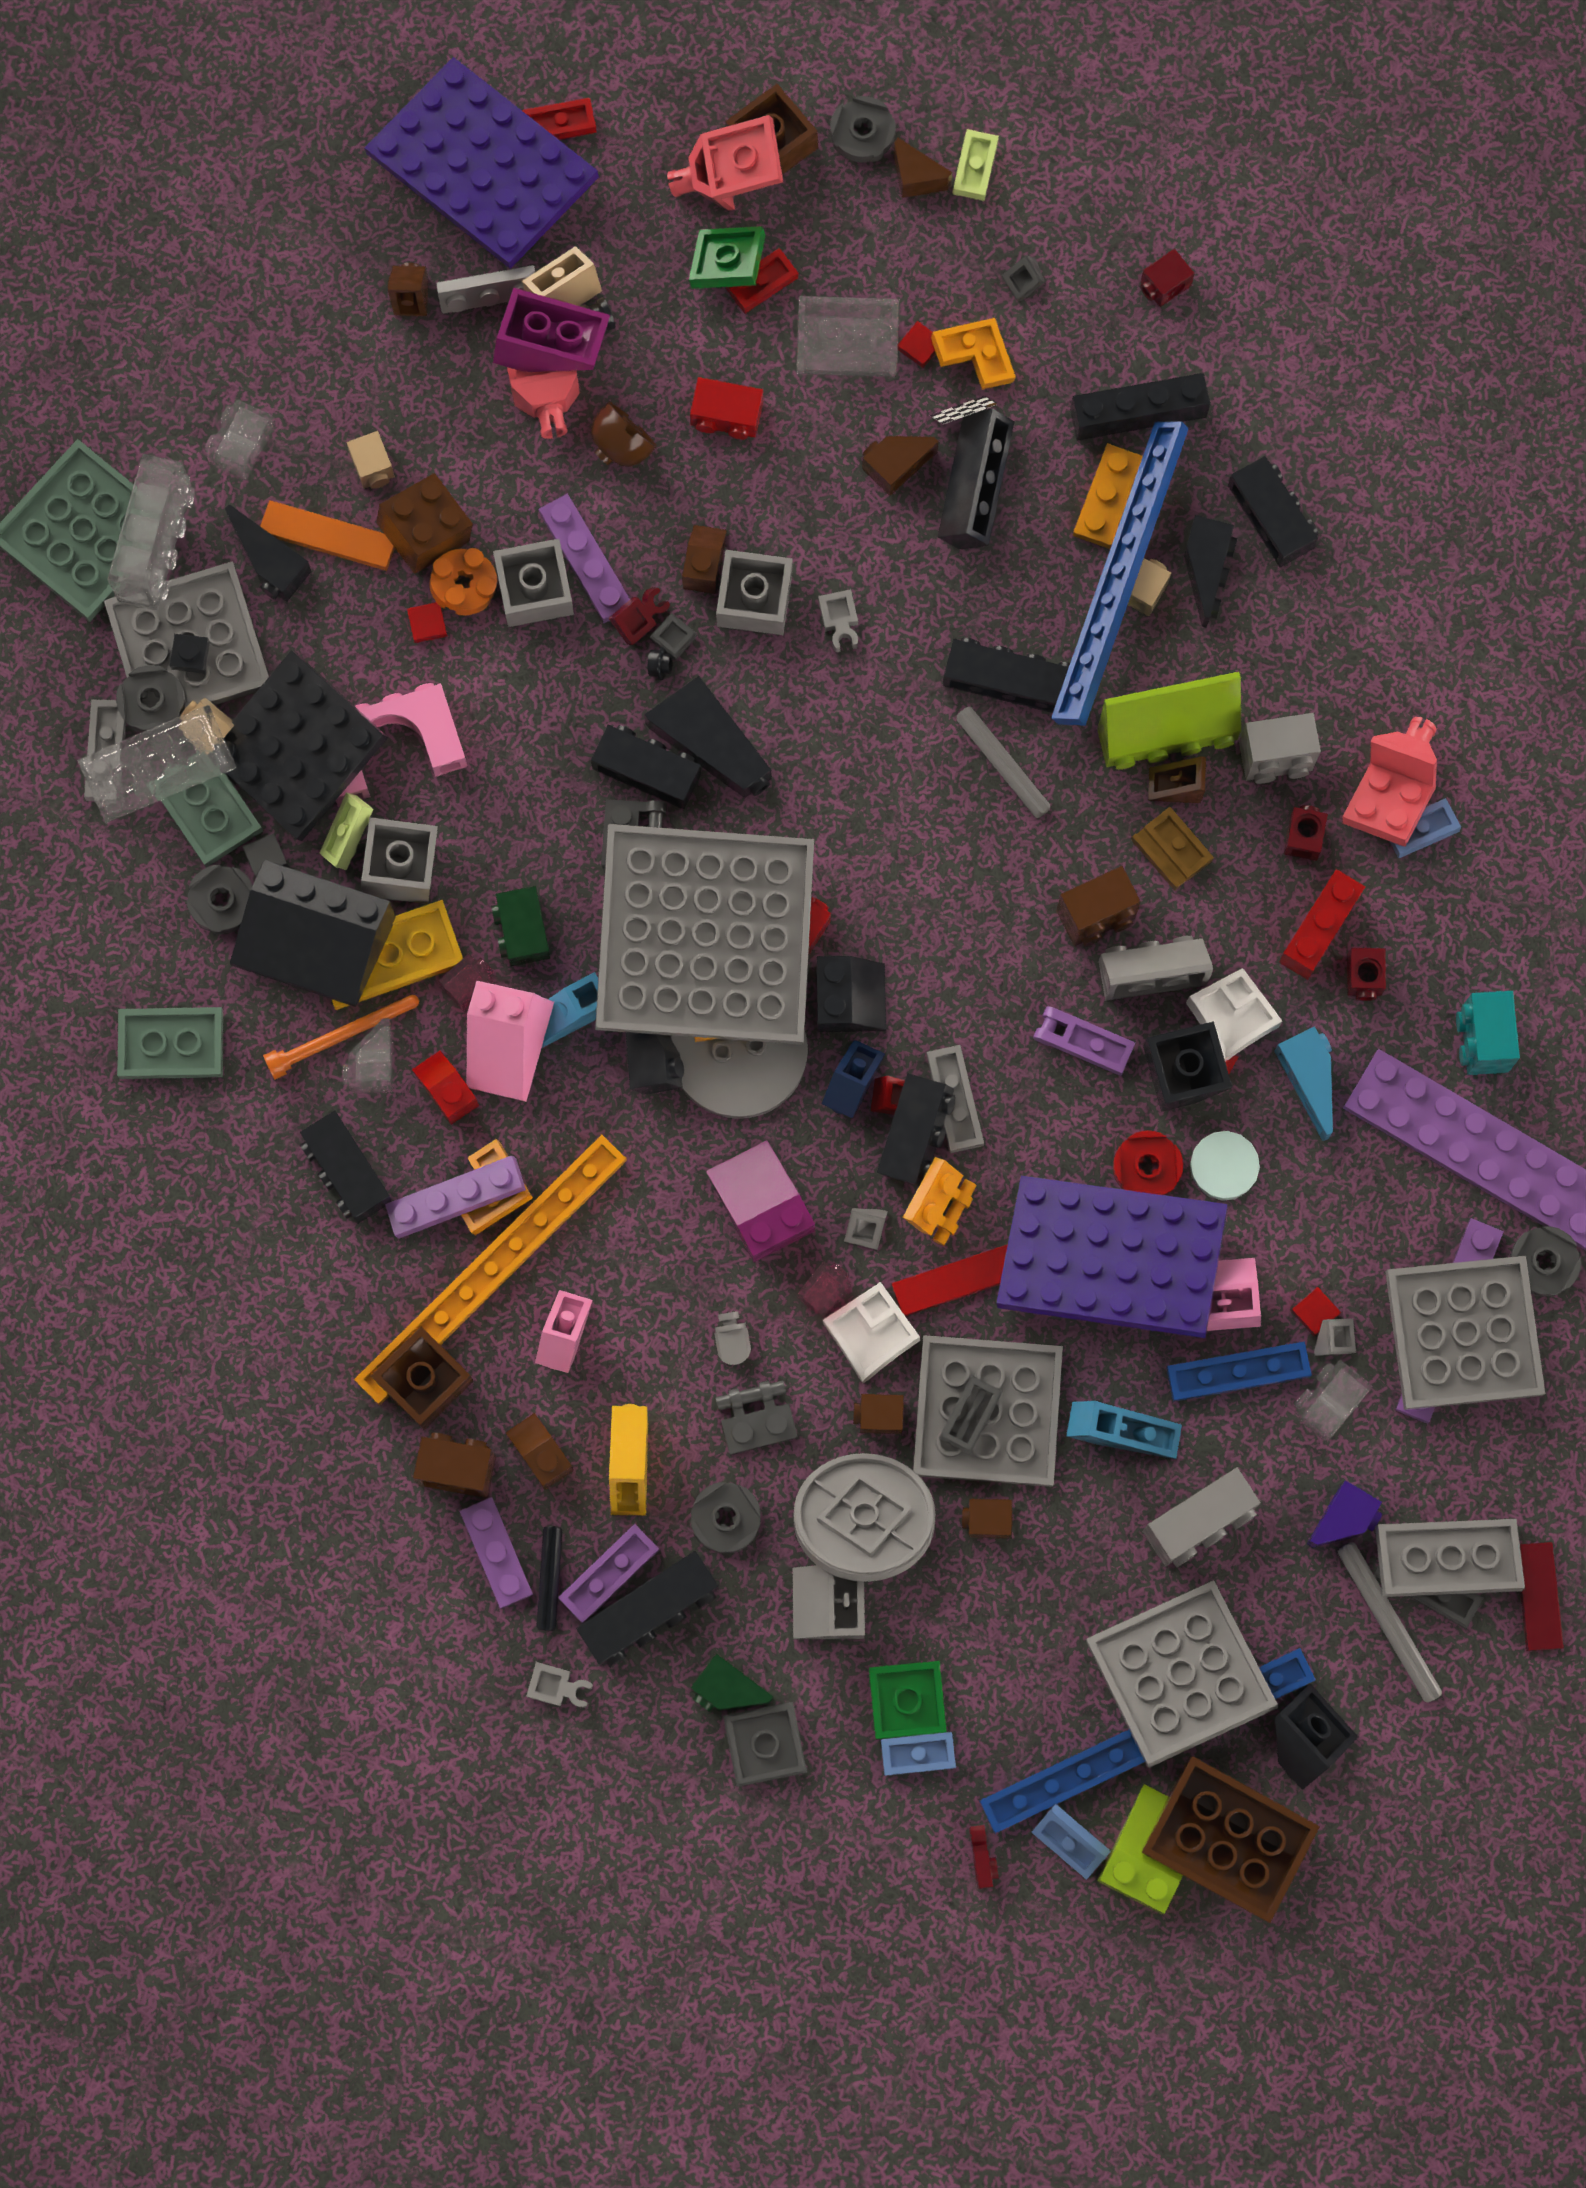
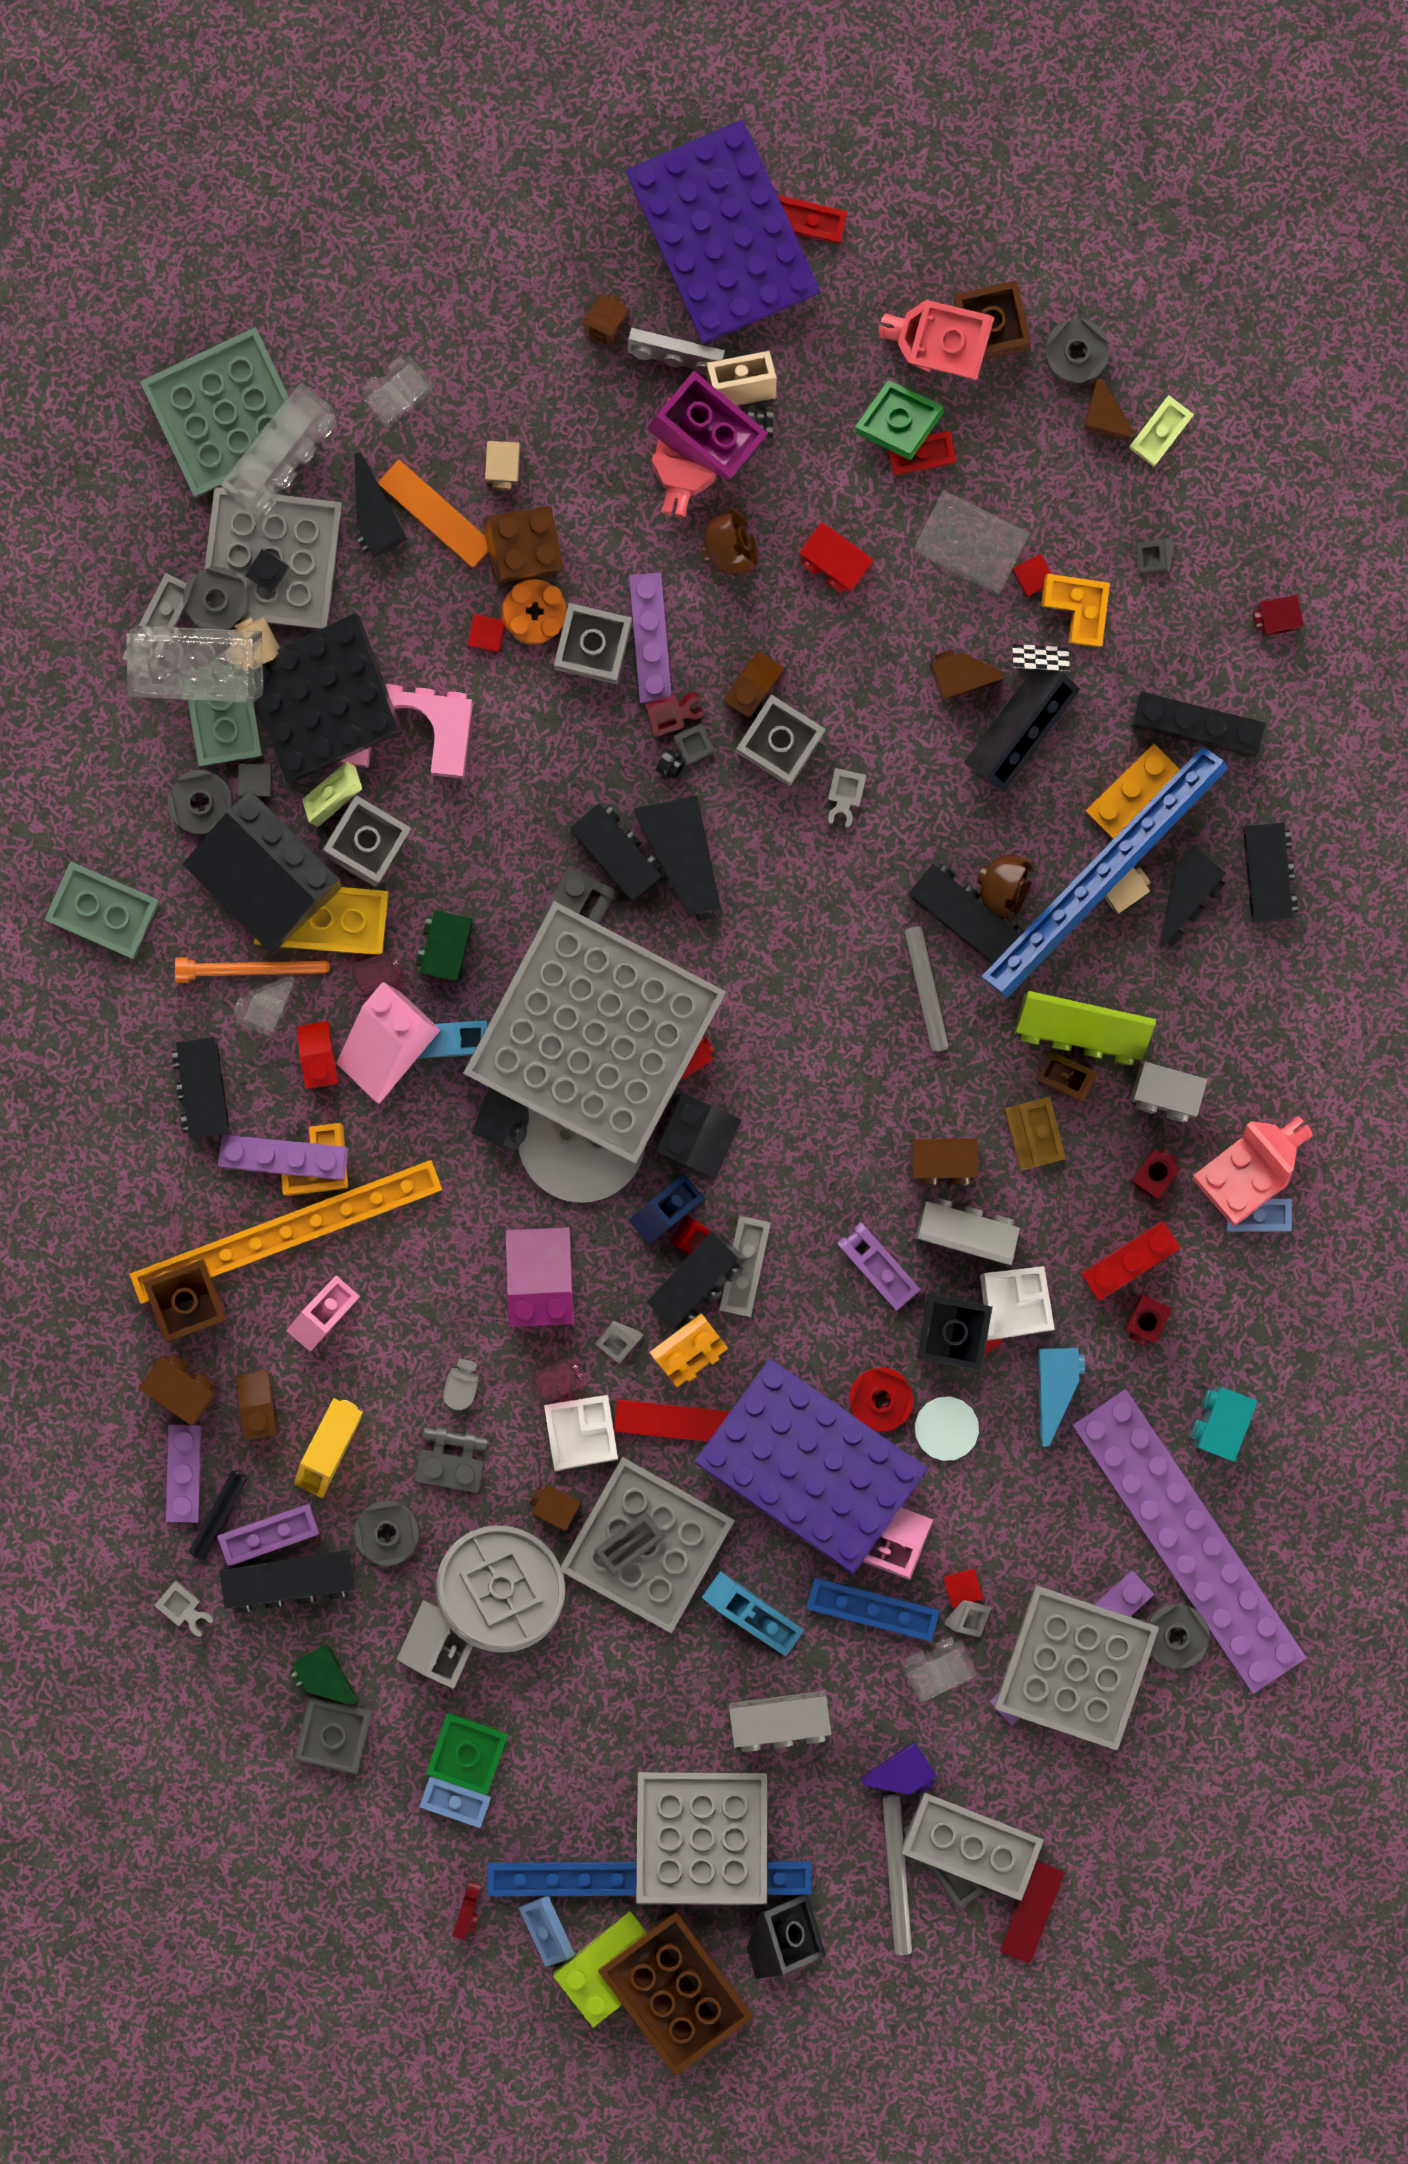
camera: 25 degrees right, 10 degrees up
(988, 1518) = (604, 1635): reddish brown brick -> none
(1031, 627) = (1005, 884): none -> reddish brown cylinder

